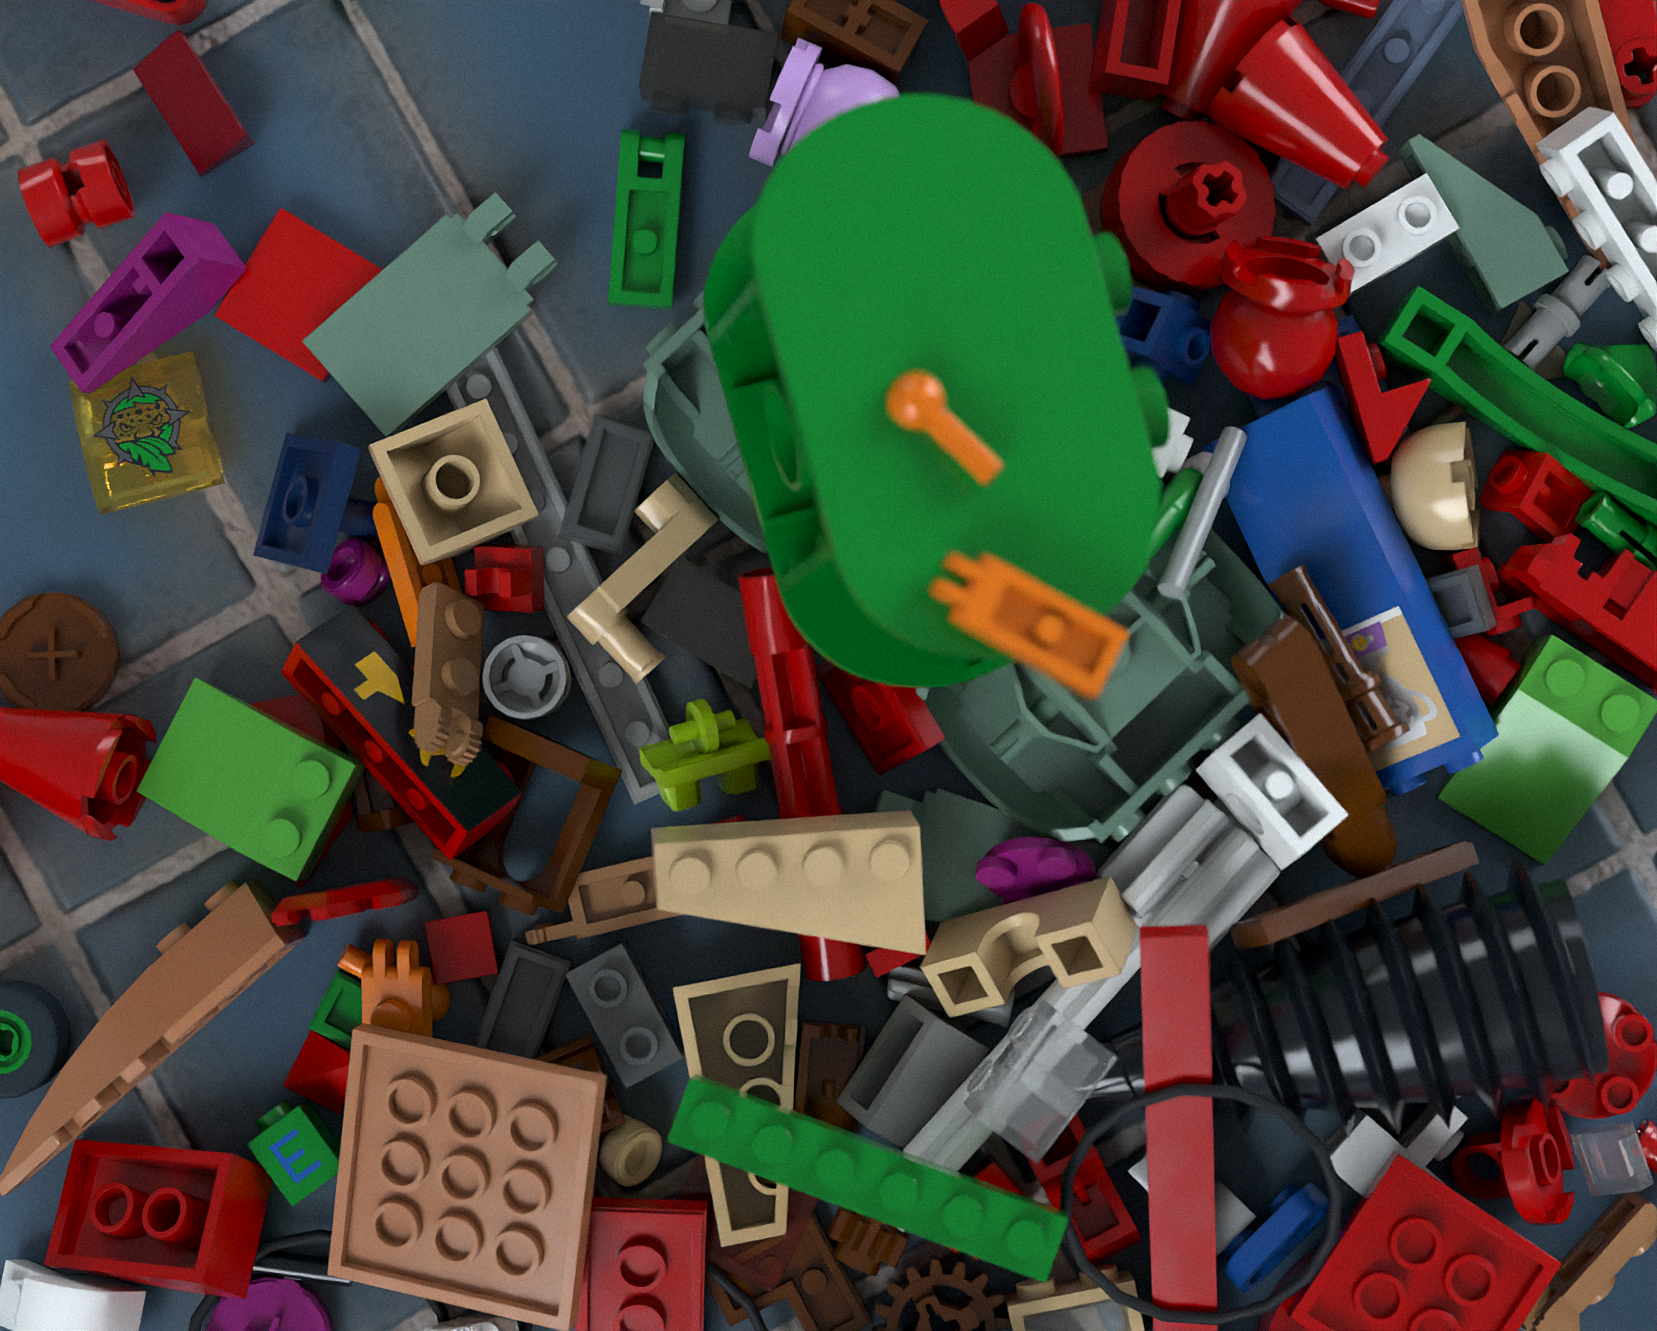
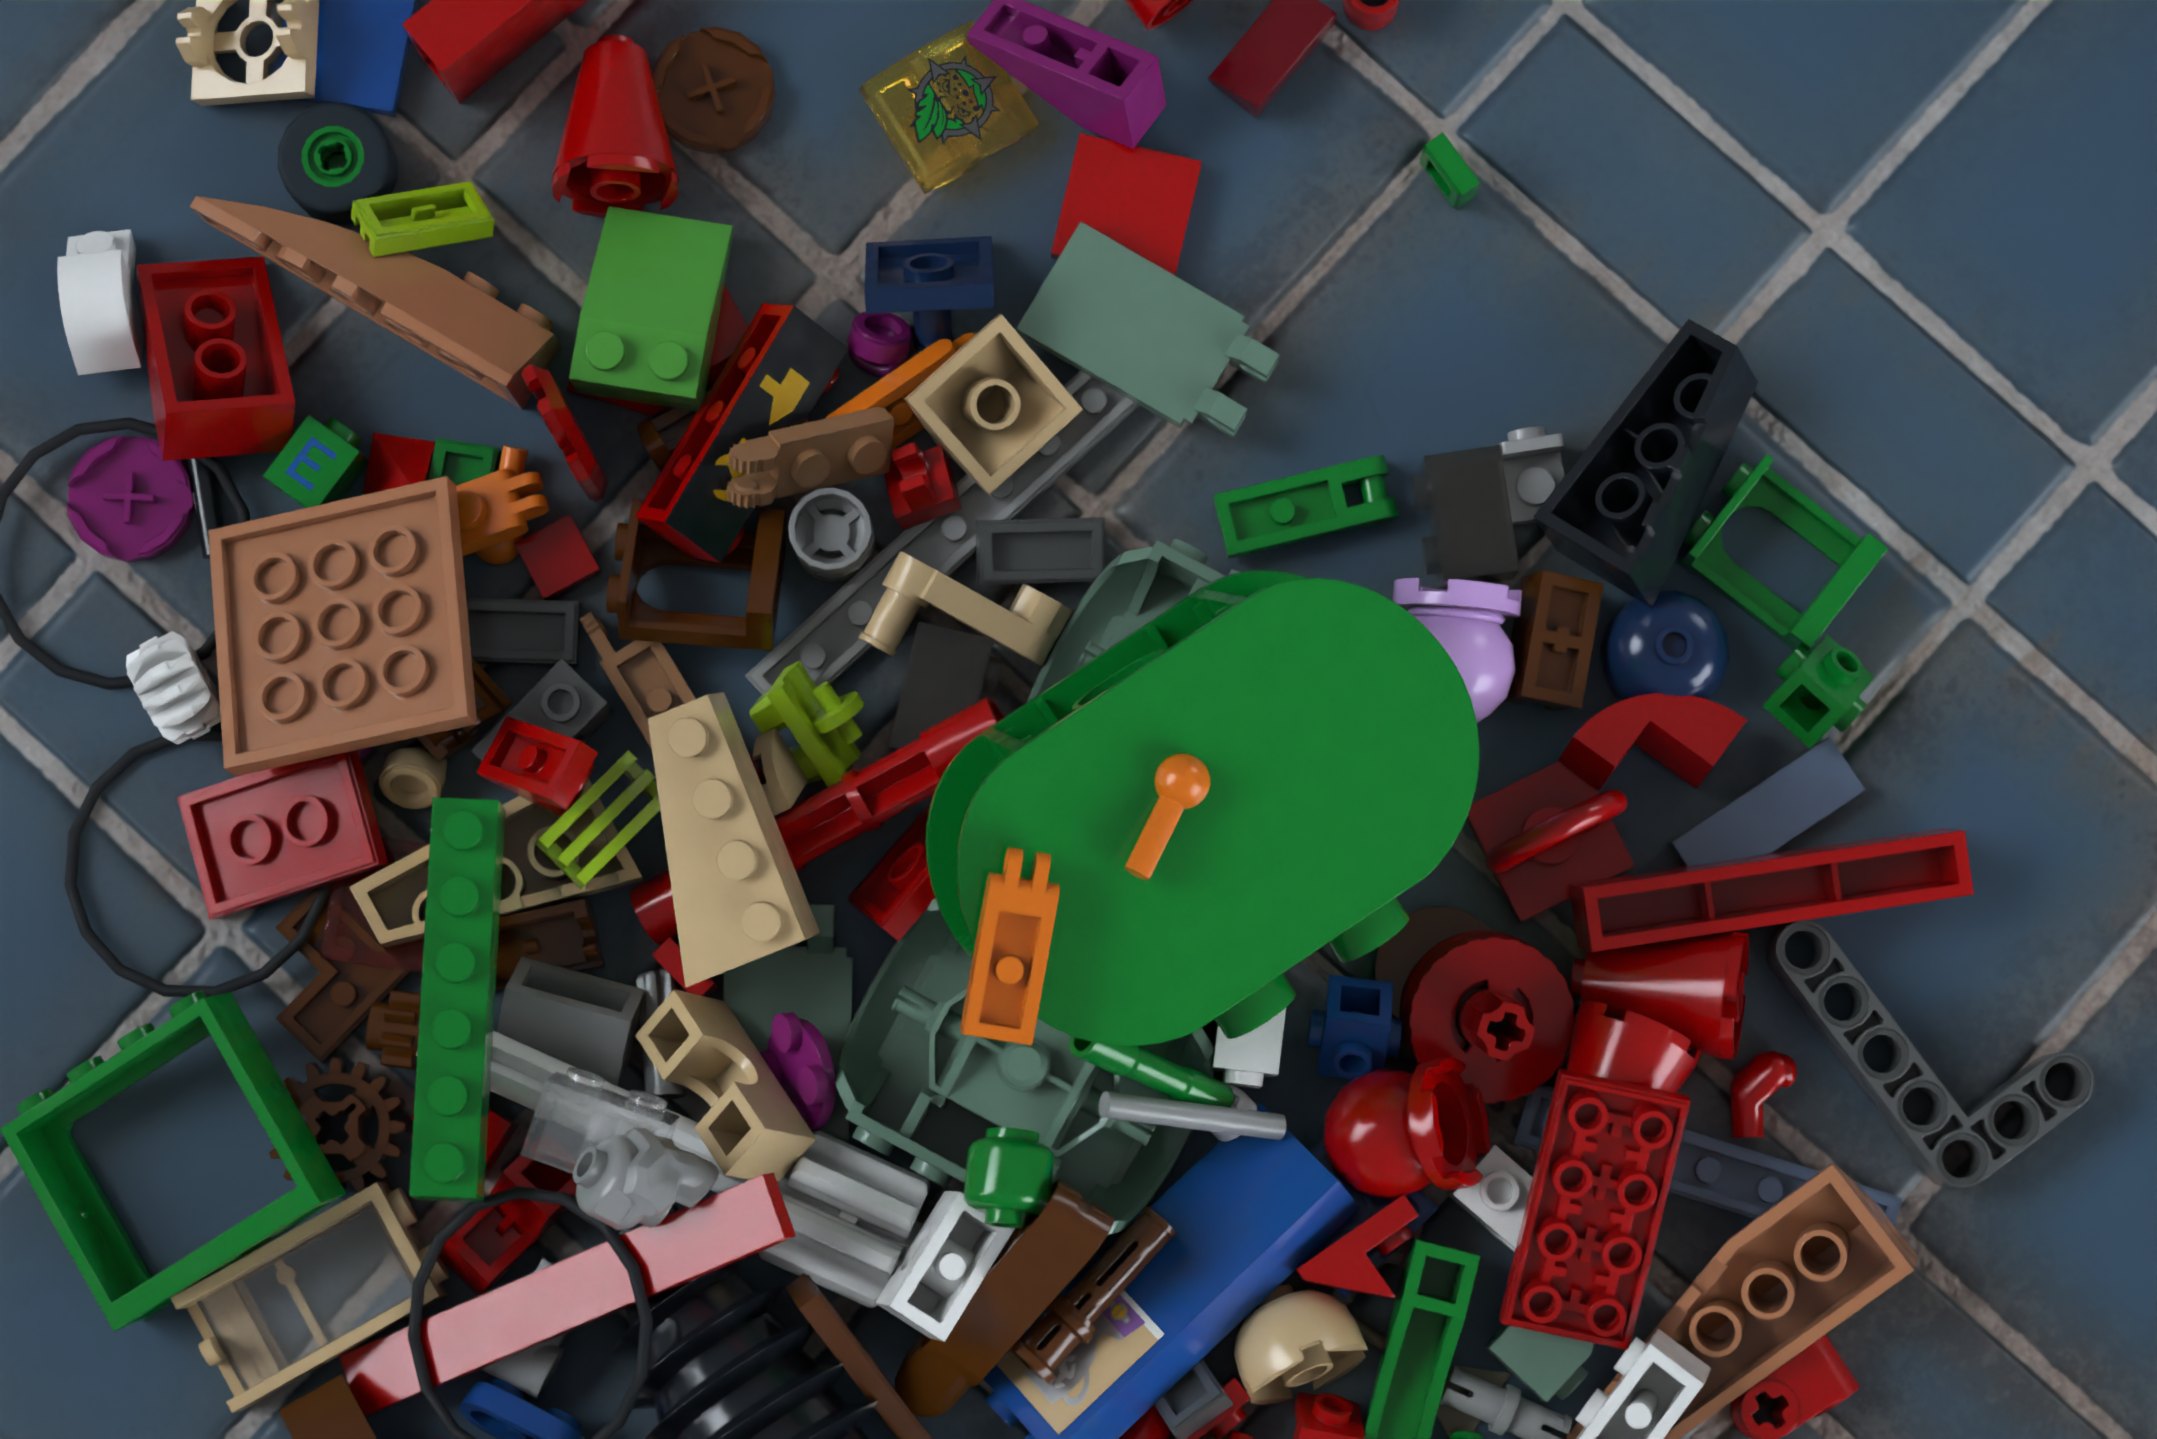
camera: 70 degrees right, 5 degrees down
(89, 974) = (422, 218): none -> lime tile
(664, 1029) = (538, 765): none -> red slope
(741, 798) = (781, 771): none -> tan tile
(763, 1031) = (642, 781): none -> lime tile
(1102, 1056) = (639, 1179): none -> light grey head
(1213, 703) = (1008, 1176): none -> green head
(1410, 162) = (1594, 1209): none -> red tile

